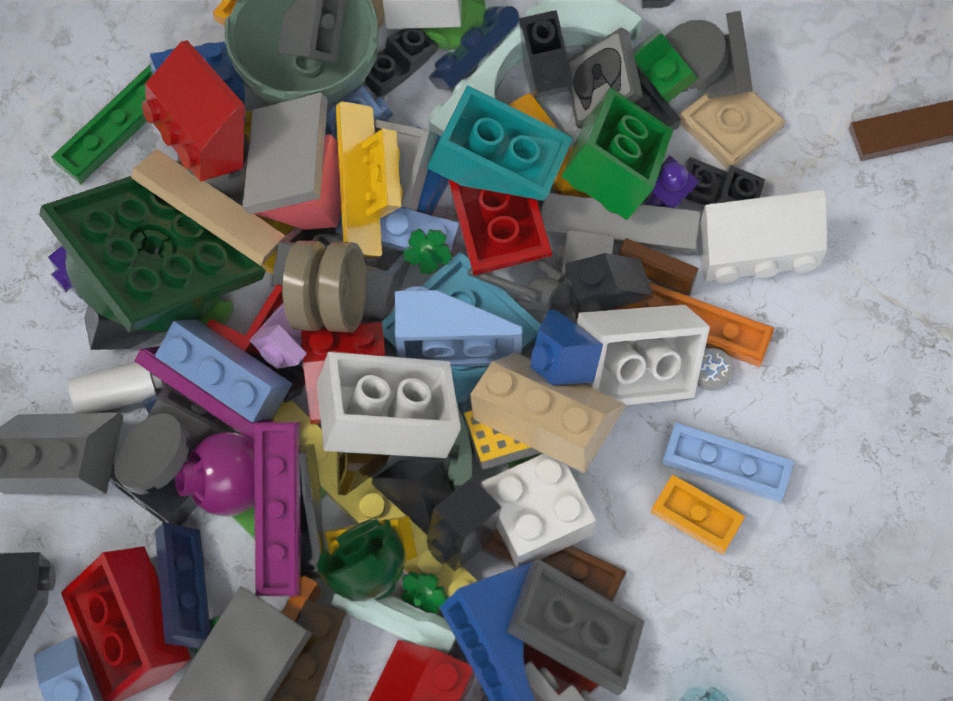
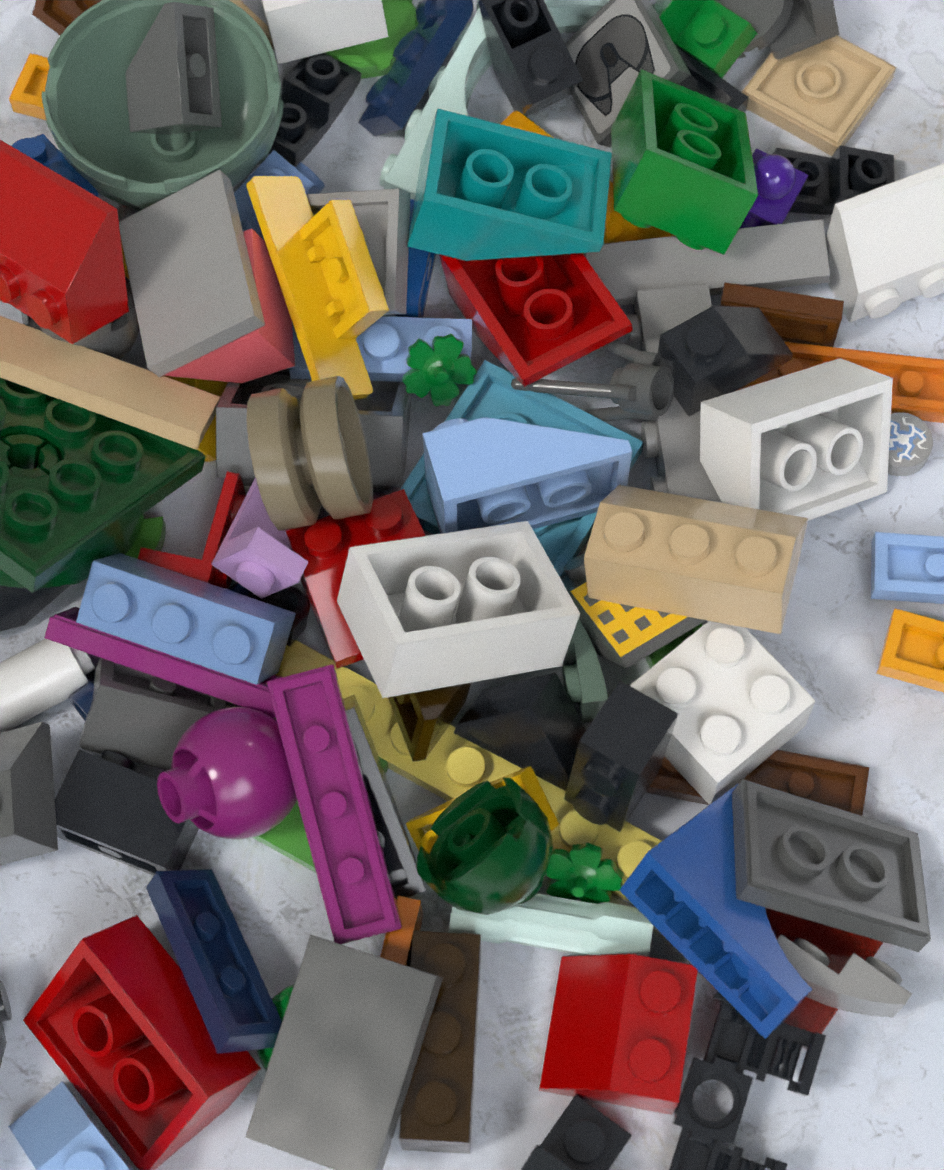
camera: 15 degrees left, 0 degrees up
(152, 453) = (115, 769): dark grey tile -> none
(565, 351) = (699, 462): blue slope -> none

